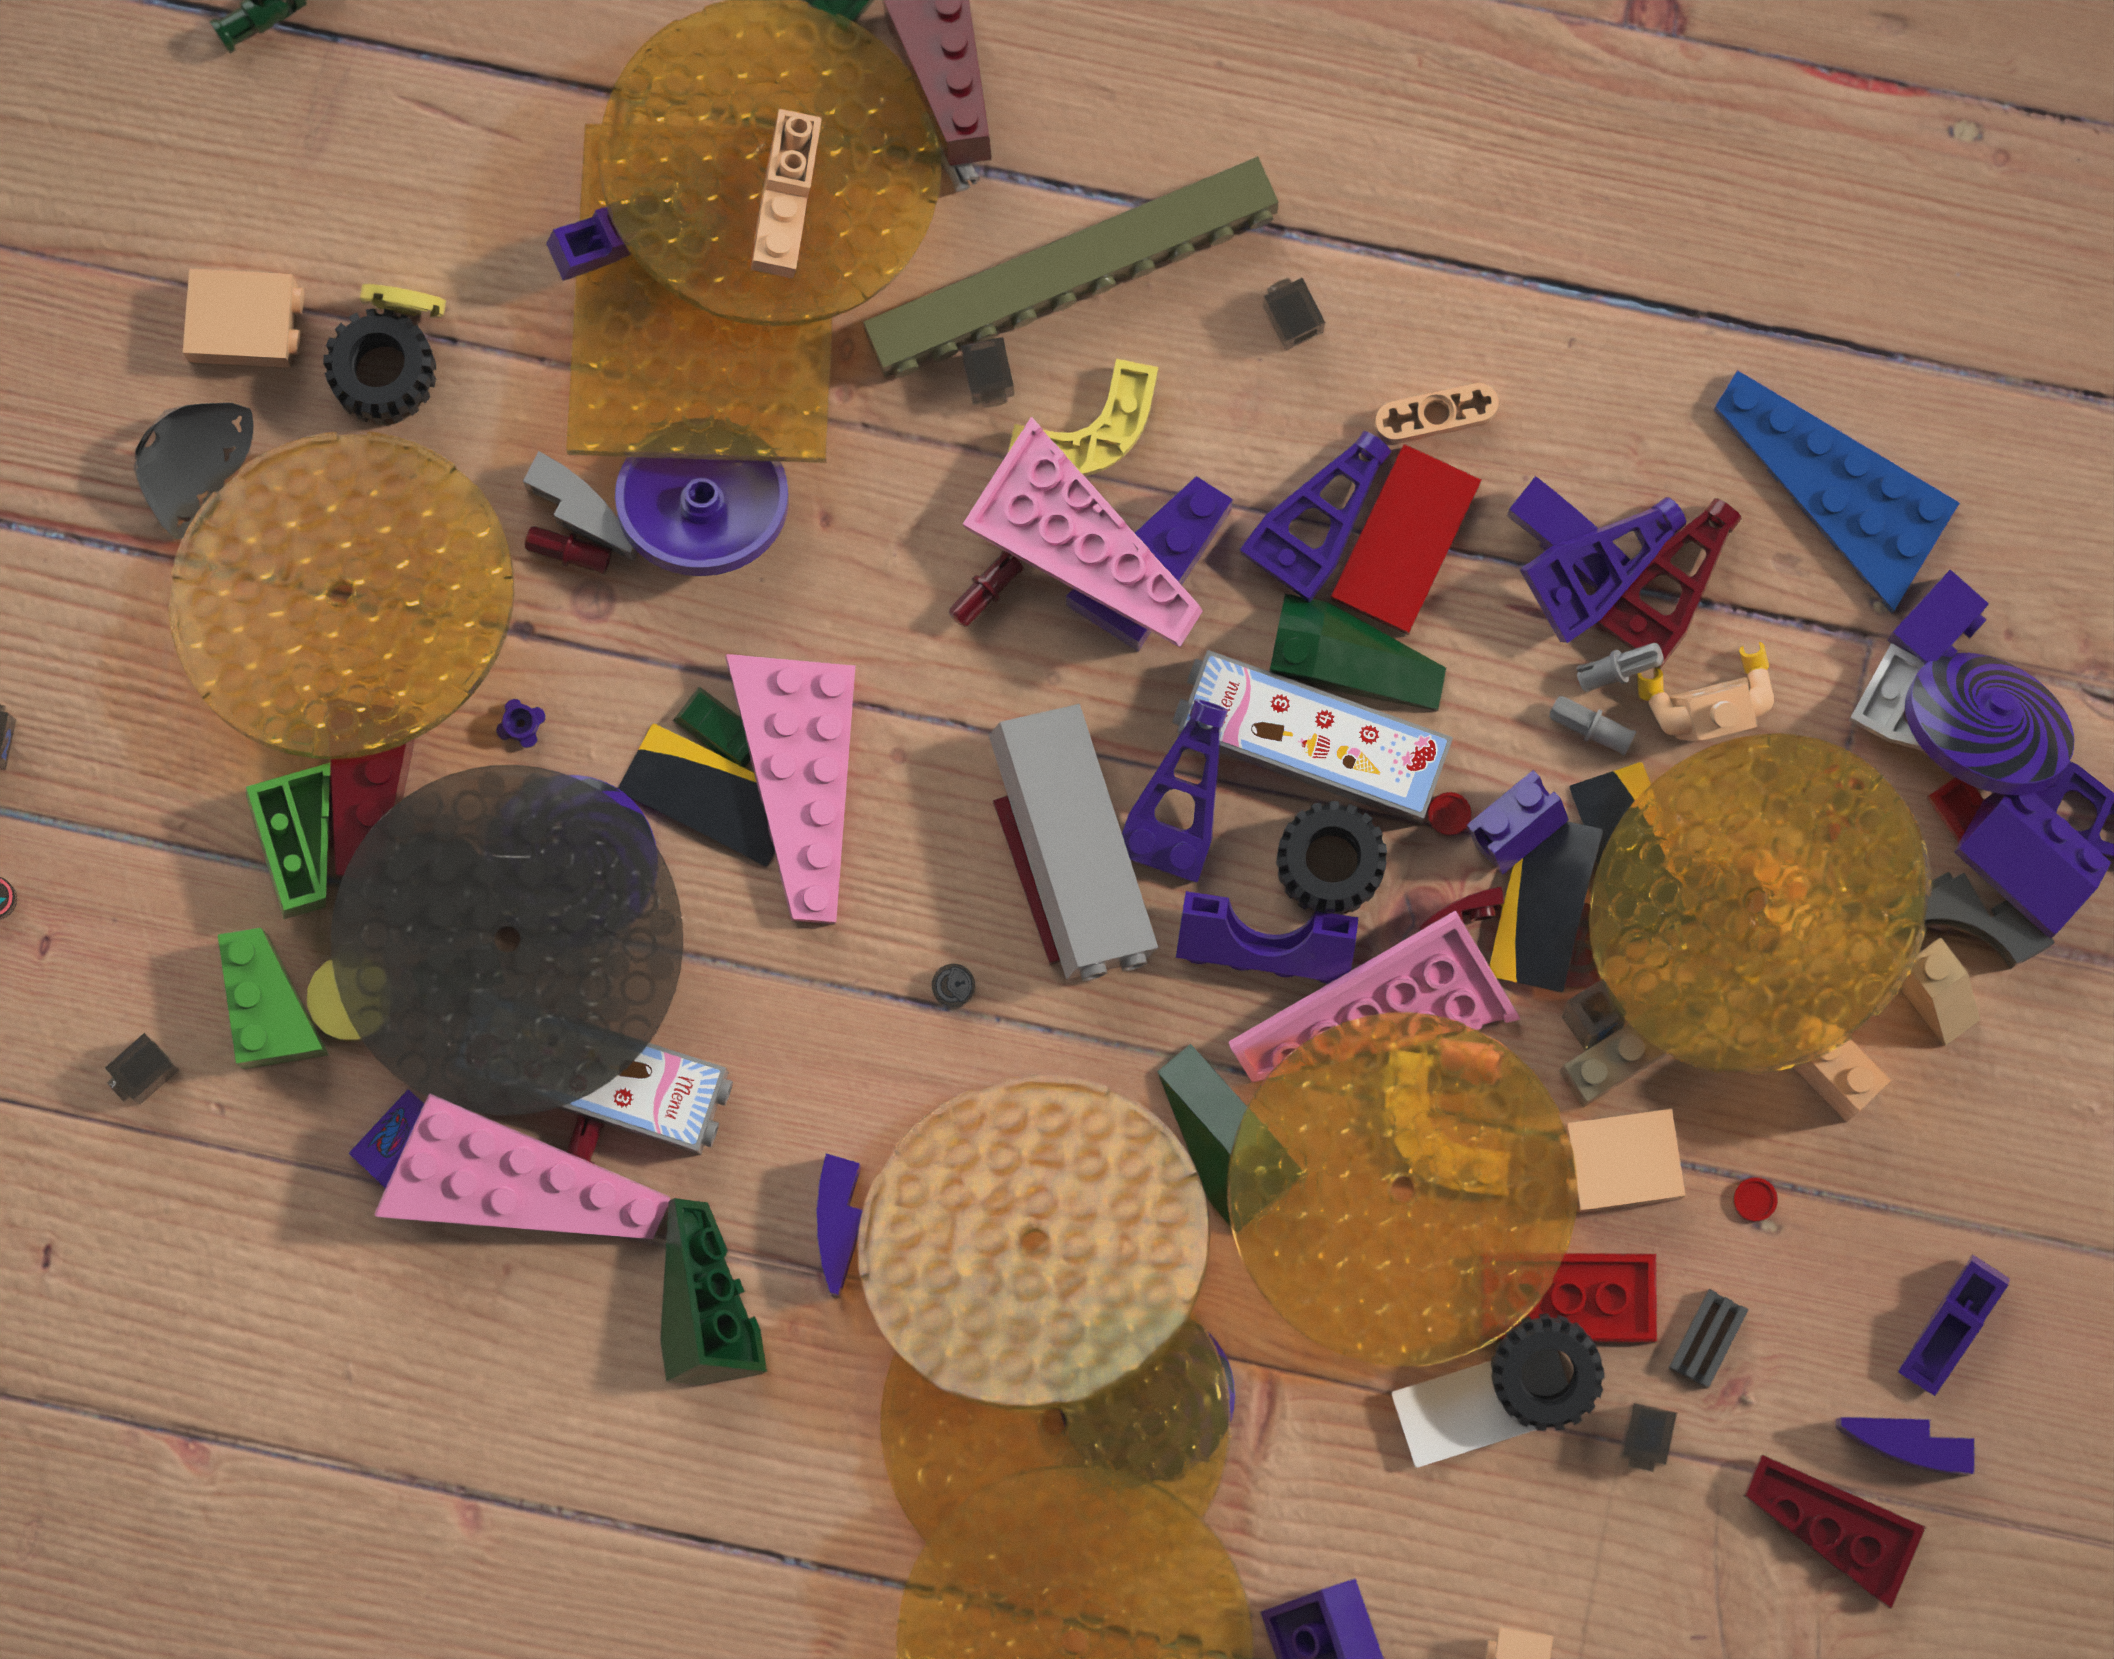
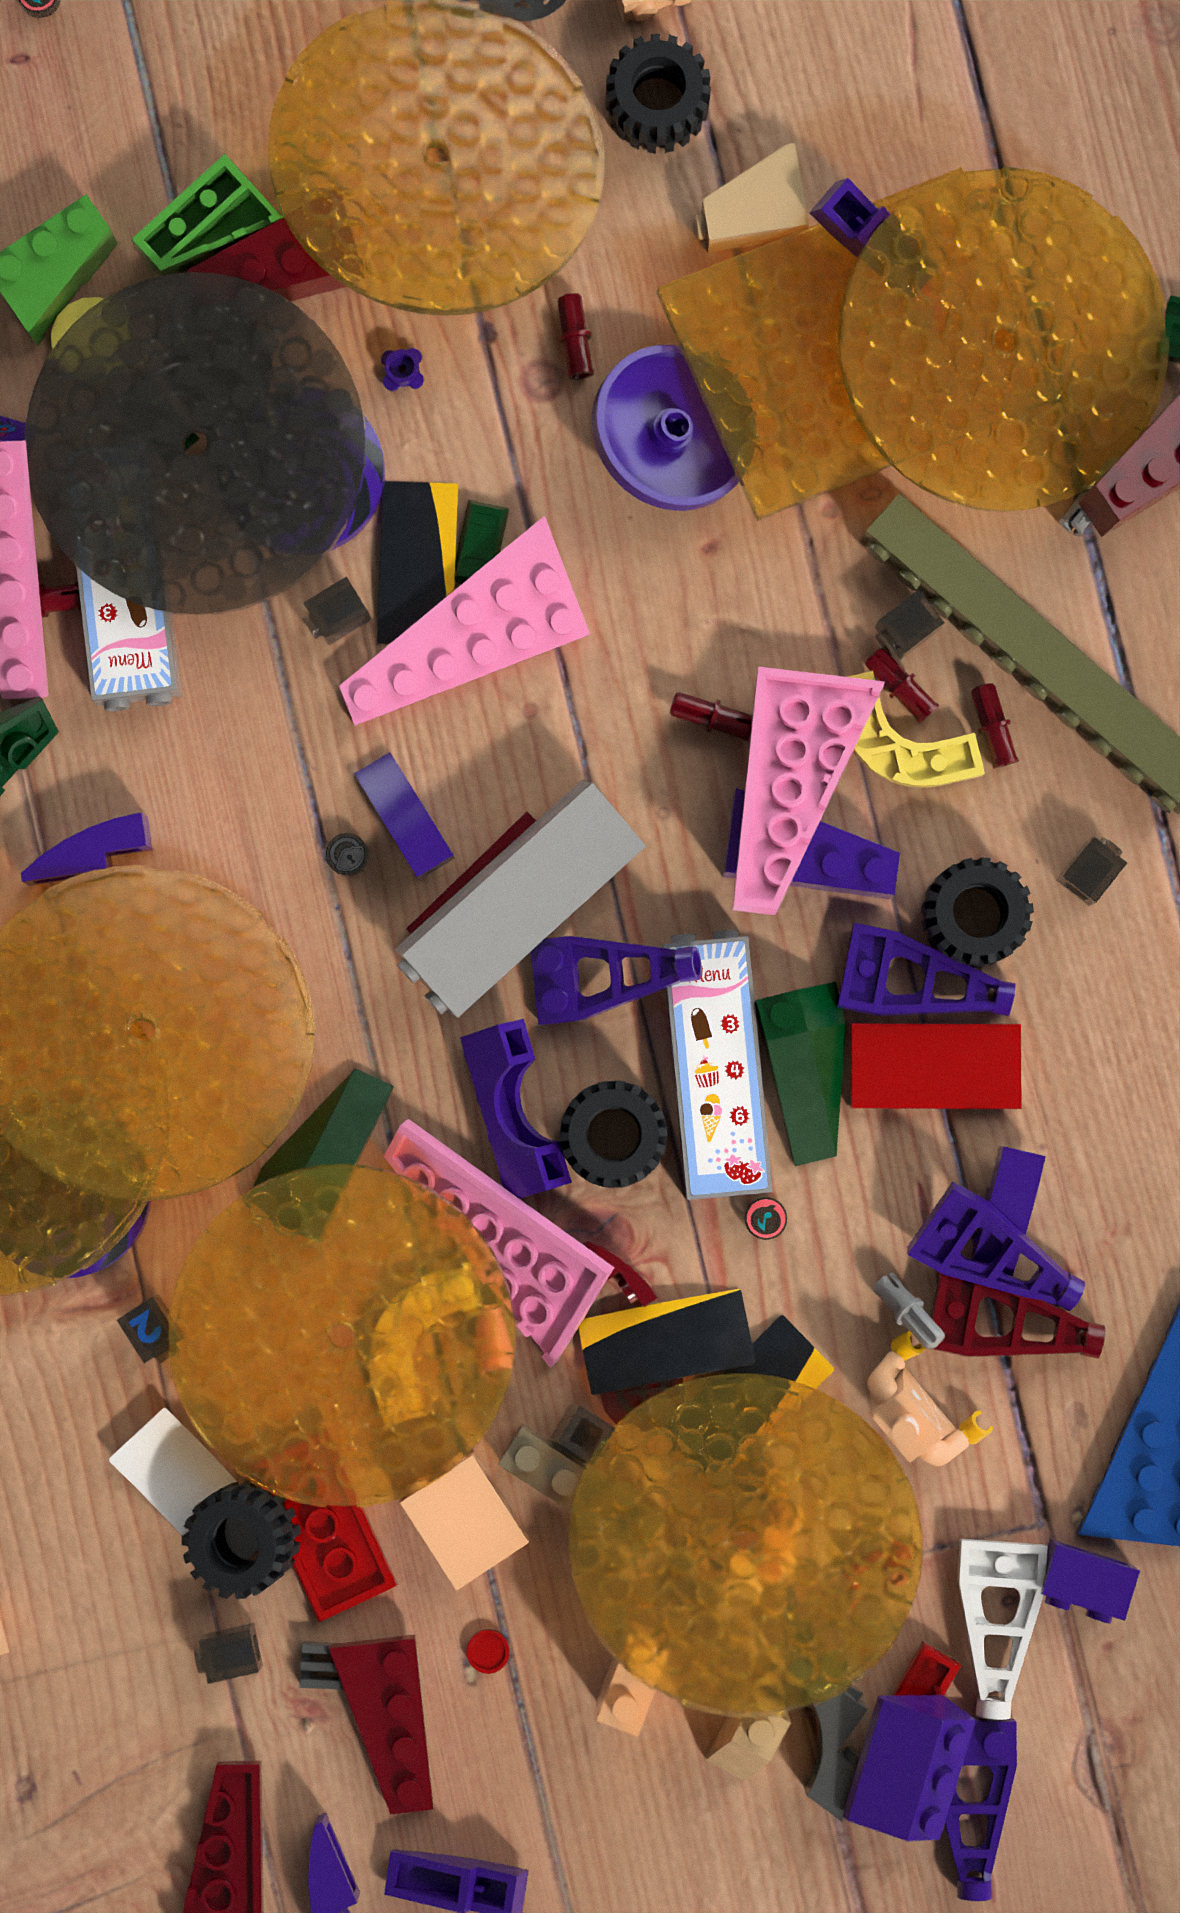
camera: 60 degrees right, 5 degrees up
(402, 300) = (724, 83): light yellow tile -> none
(529, 324) = (755, 205): none -> tan slope
(578, 505) = (618, 323): light grey slope -> none
(721, 889) = (335, 612): none -> clear smoke brick
(785, 193) = (978, 364): light nougat slope -> none
(943, 914) = (404, 816): none -> dark purple slope
(1039, 404) = (901, 684): none -> dark red axle
(1116, 338) = (994, 725): none -> dark red axle
(1289, 399) = (1007, 892): none -> black tyre
(1314, 1370) = (148, 1329): none -> clear smoke brick
(1445, 397) = (1080, 1040): light nougat beam -> none
(1449, 814) = (706, 1219): red piece -> none
(1473, 759) = (765, 1218): none -> clear smoke tile
(1517, 822) = (724, 1285): dark purple brick -> none
(1592, 724) = (845, 1310): light grey axle -> none
(1763, 1312) = (388, 1708): none -> dark red wing
(1989, 724) = (1012, 1673): dish -> none

